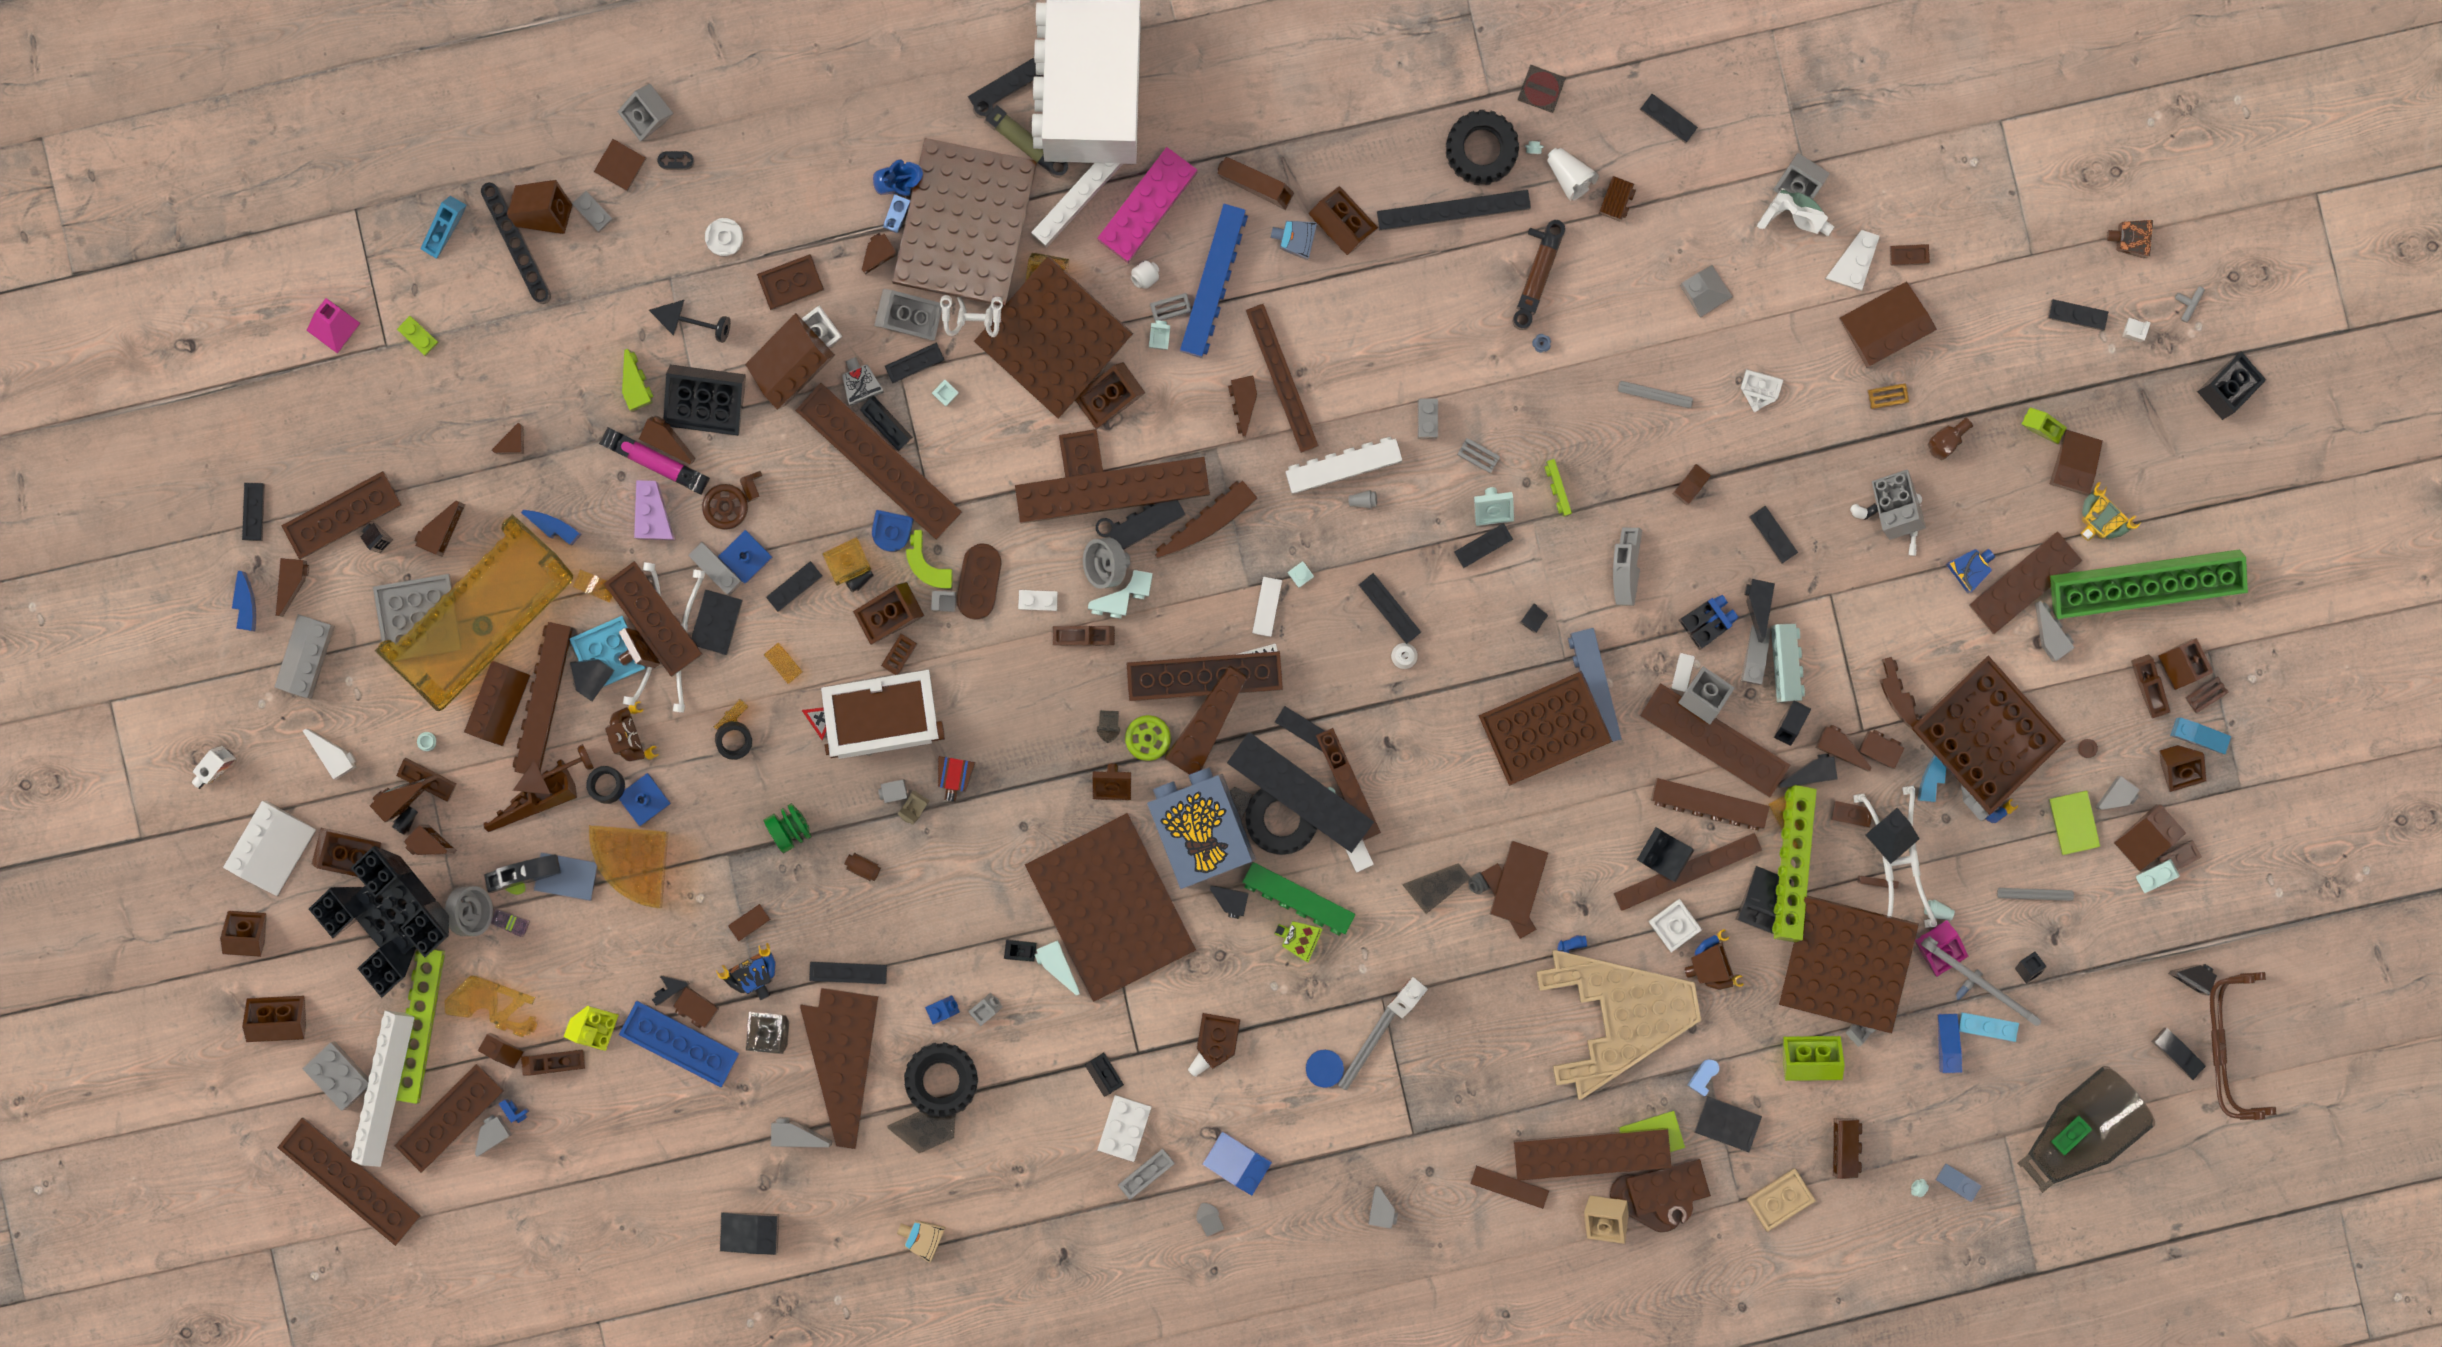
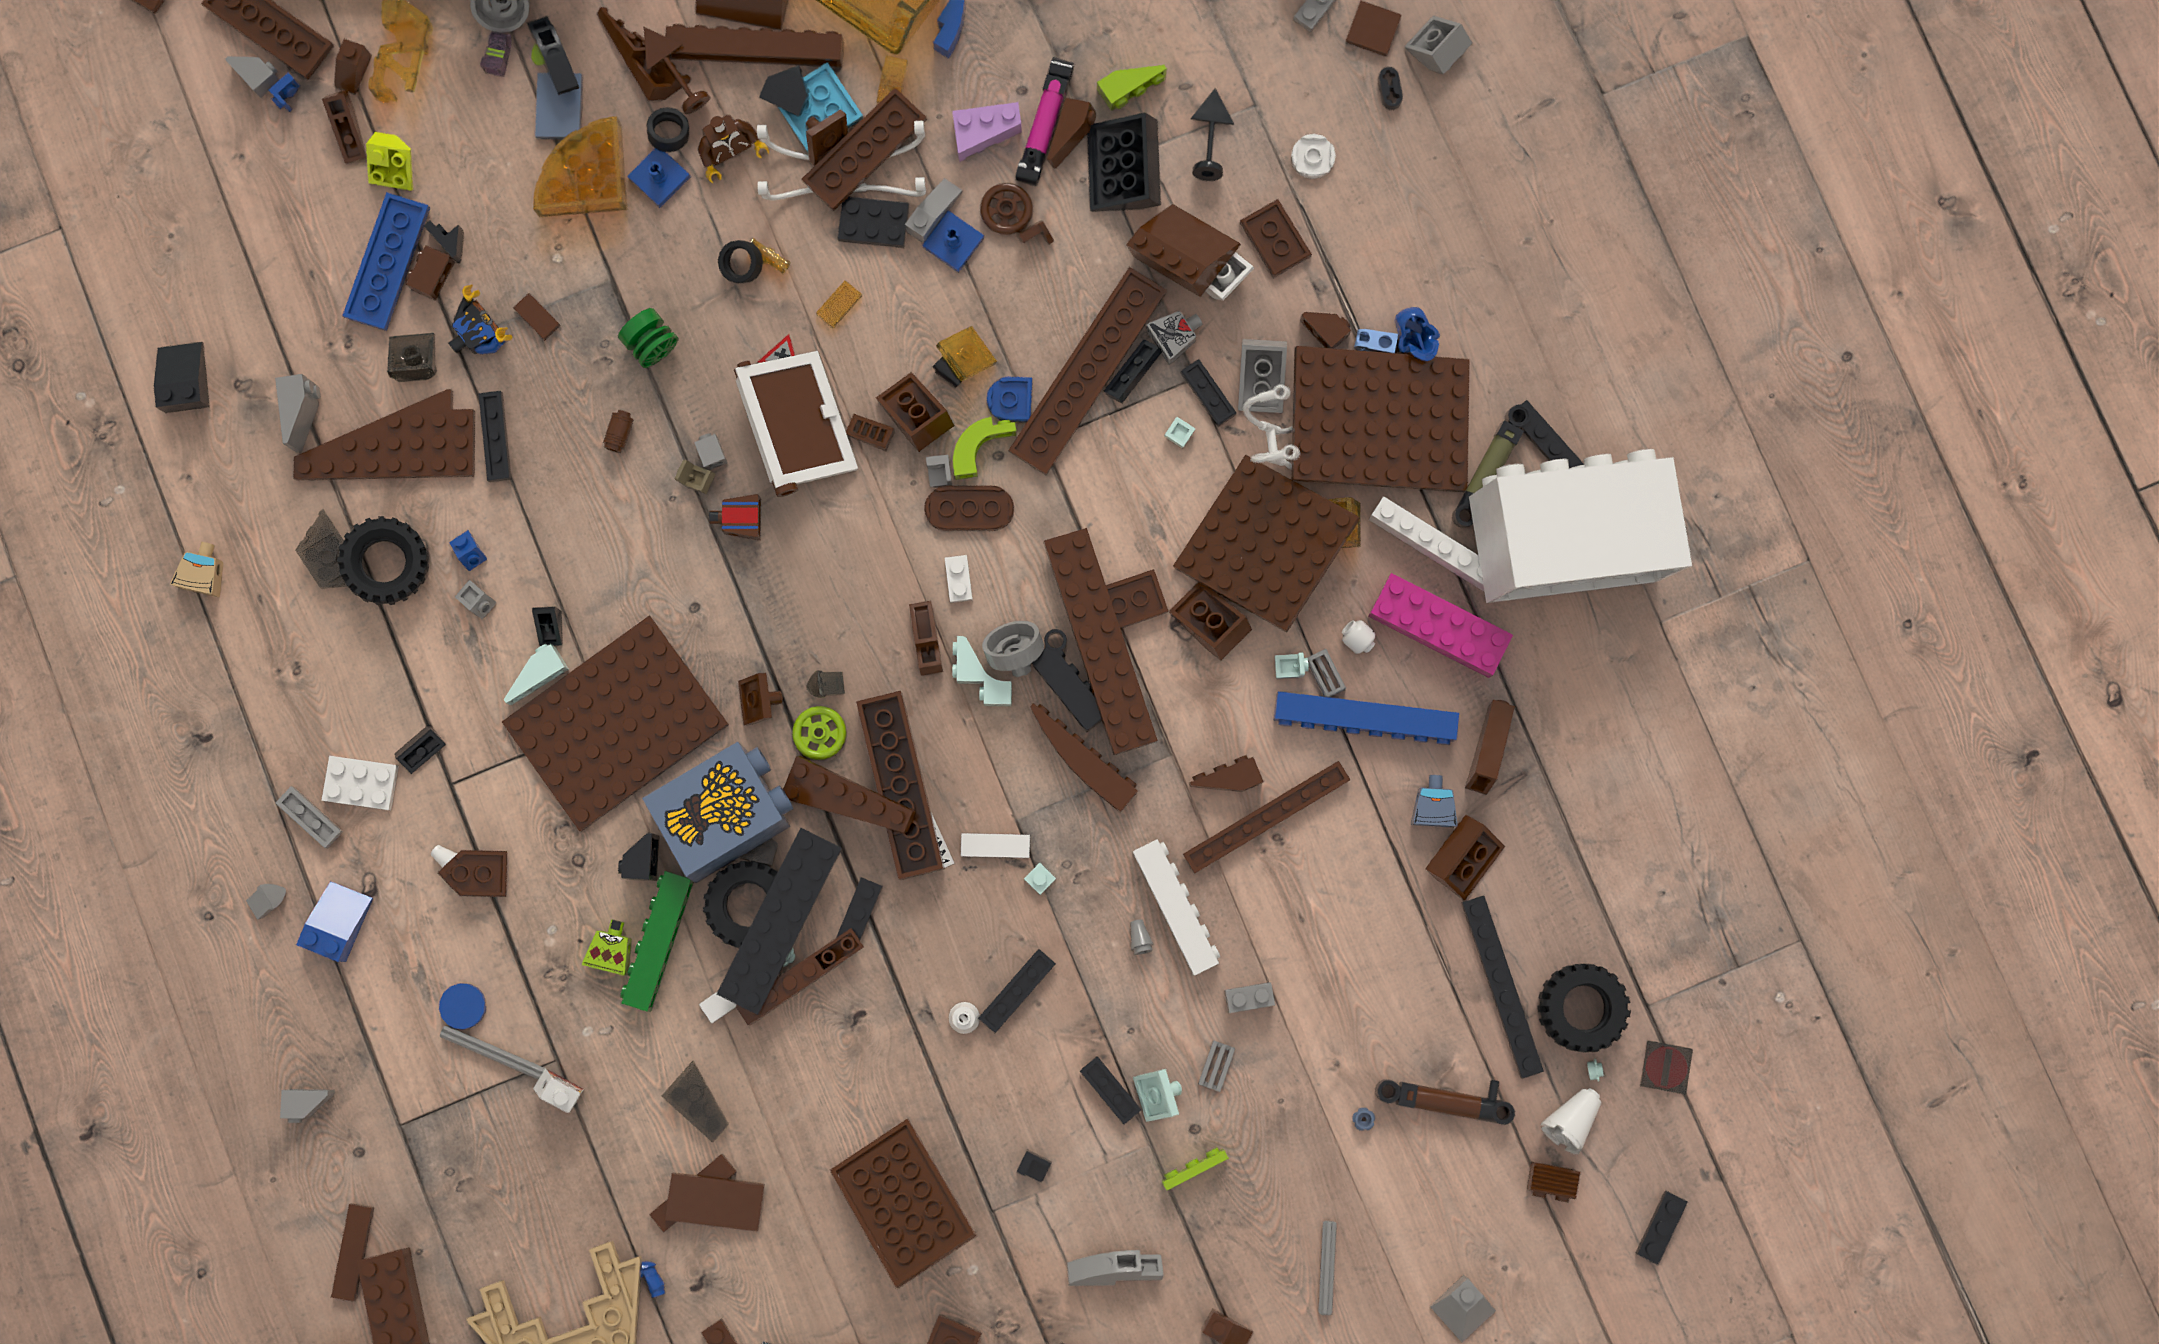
camera: 85 degrees right, 5 degrees down
(794, 586) = (928, 301): black plate -> none
(1478, 884) = (707, 1152): dark grey plate -> none
(1589, 661) = (989, 1244): sand blue brick -> none

